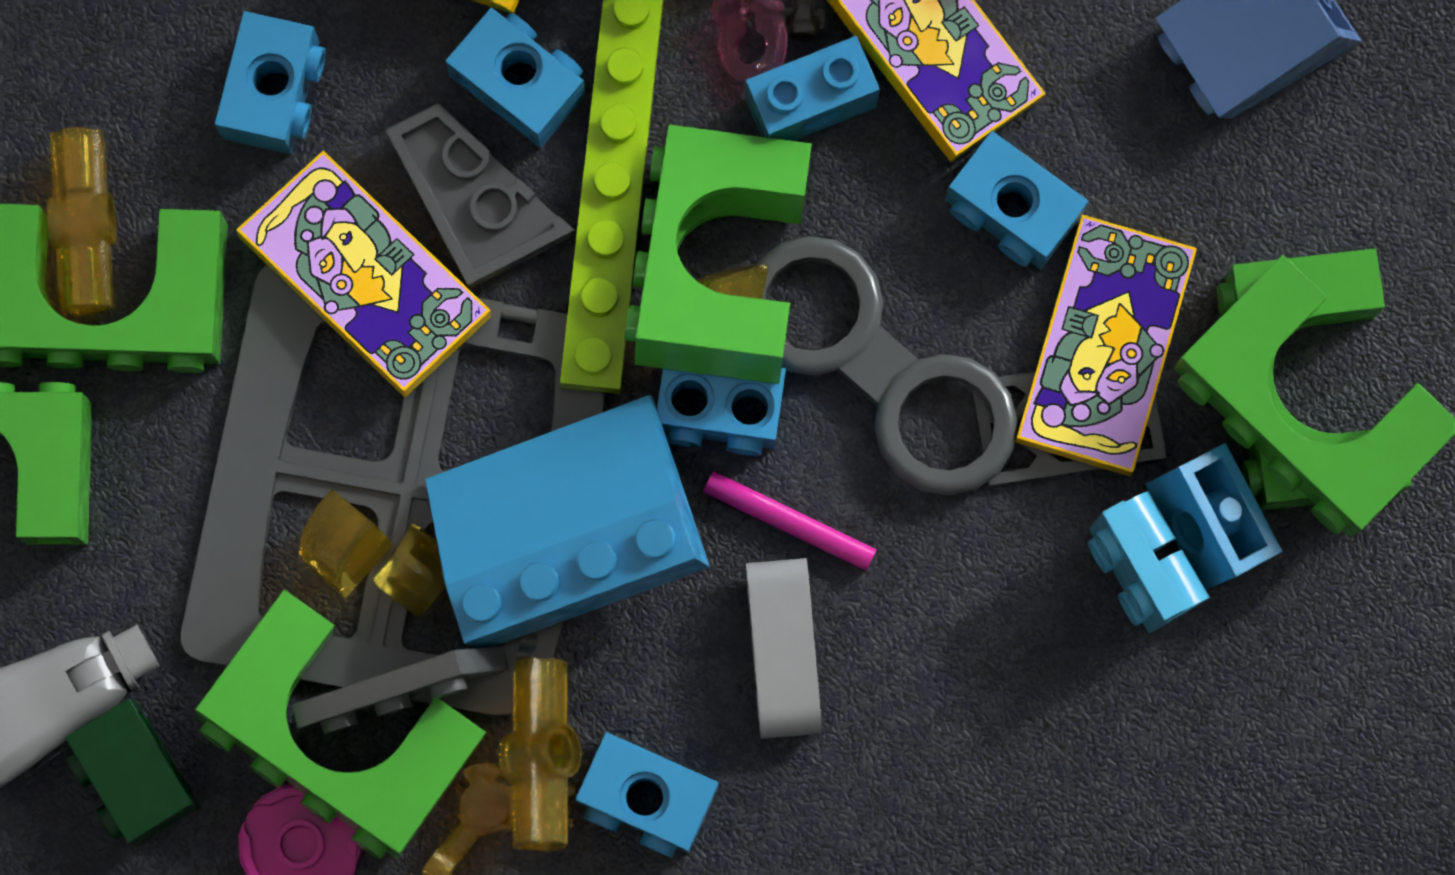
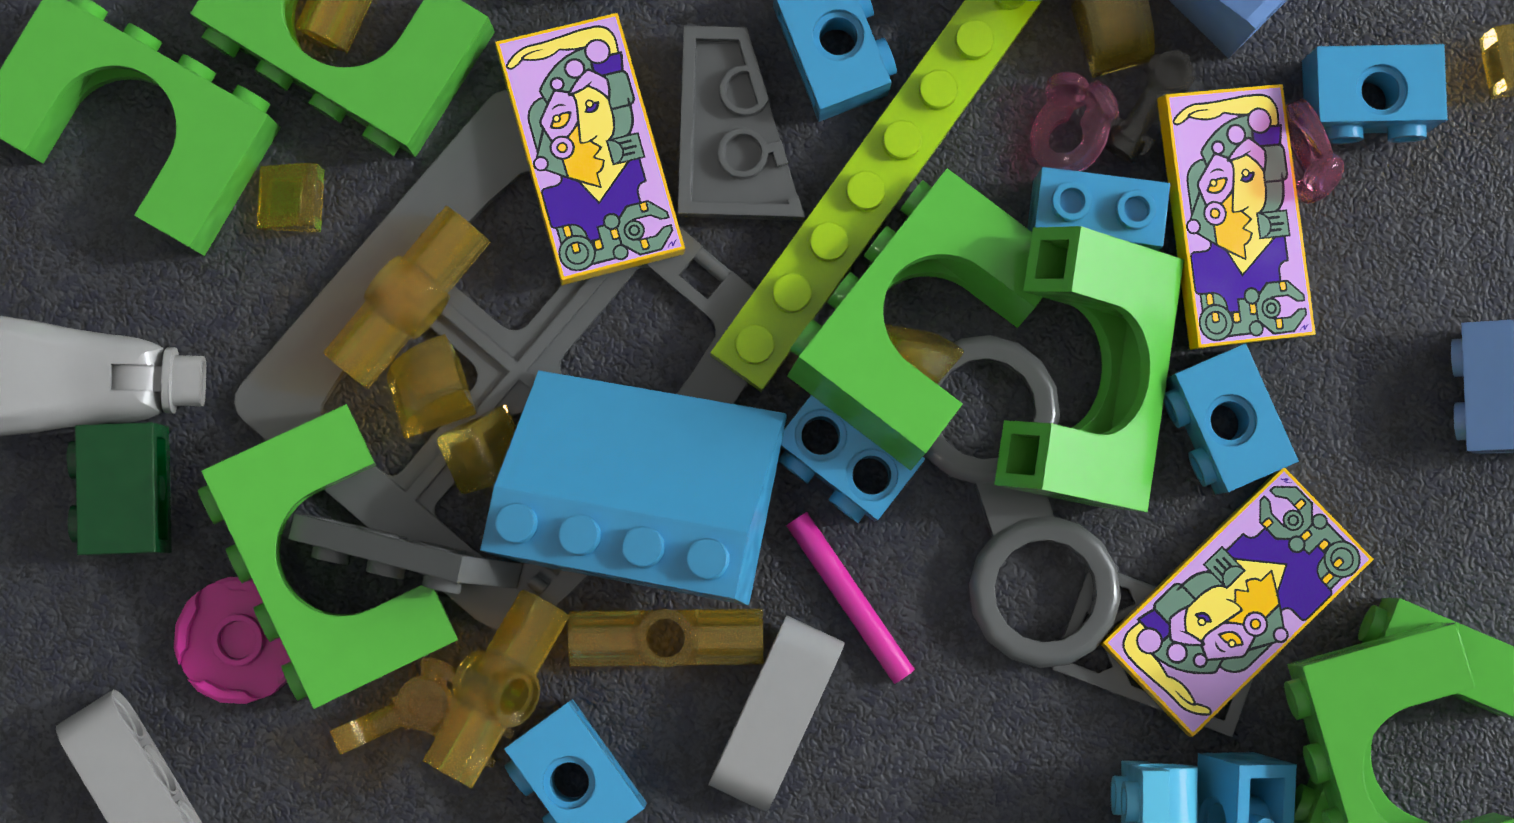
camera: 30 degrees right, 5 degrees up
(134, 454) = (291, 197): none -> clear yellow slope
(281, 478) = (406, 297): none -> clear yellow piece
(691, 615) = (622, 638): none -> clear yellow piece
(883, 152) = (1132, 306): none -> arch

